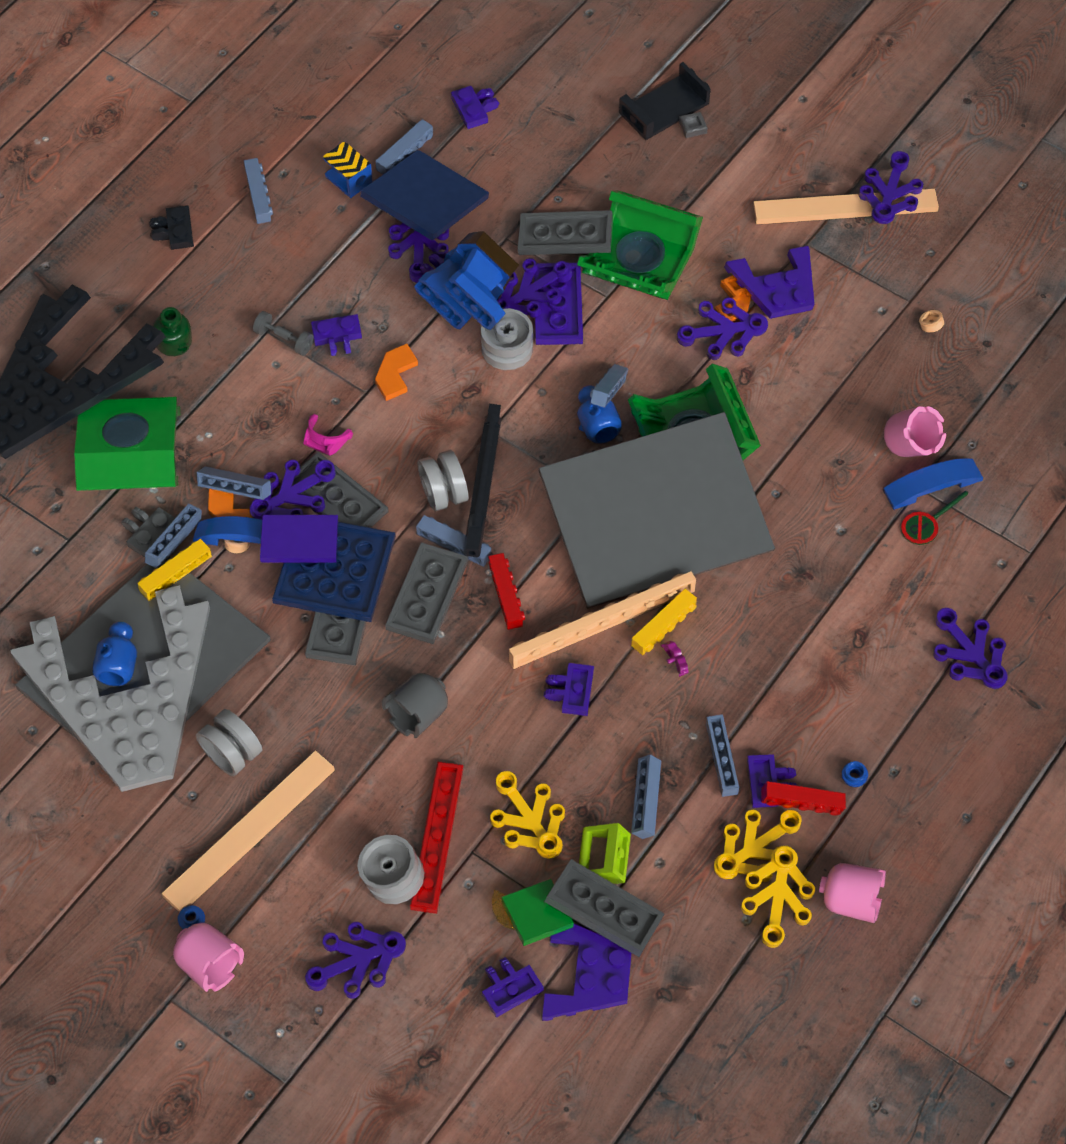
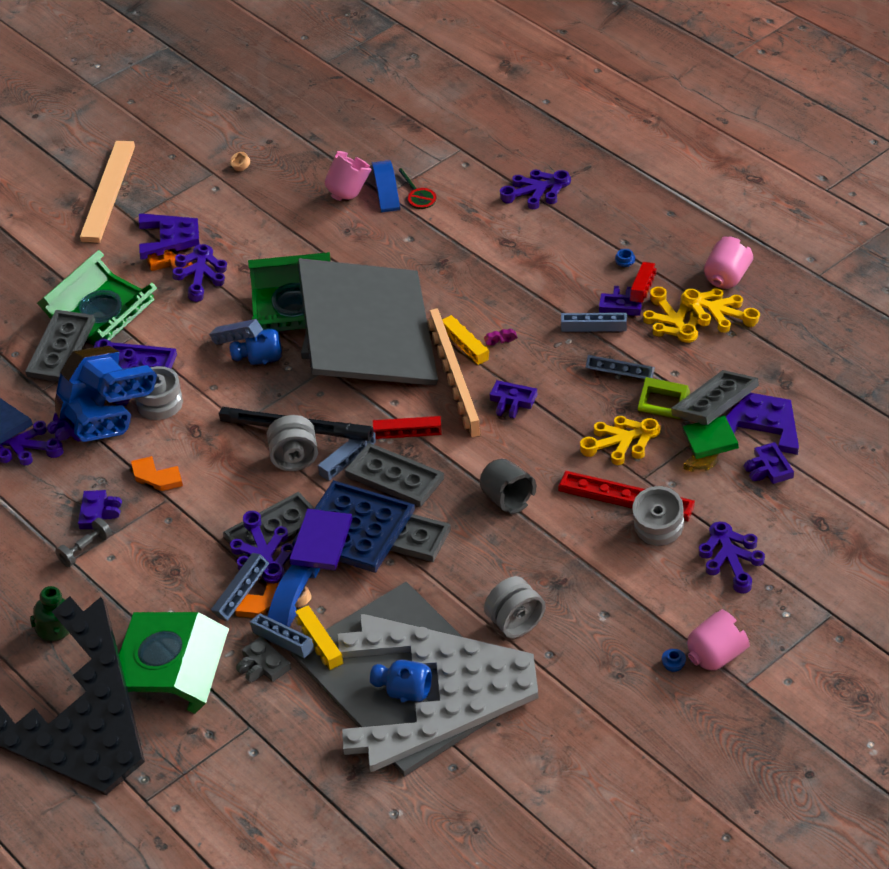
camera: 75 degrees left, 15 degrees down
(248, 832) = (597, 616): light nougat tile -> none
(322, 443) = (209, 532): dark pink helmet -> none
(883, 211) = (128, 165): dark purple plant -> none

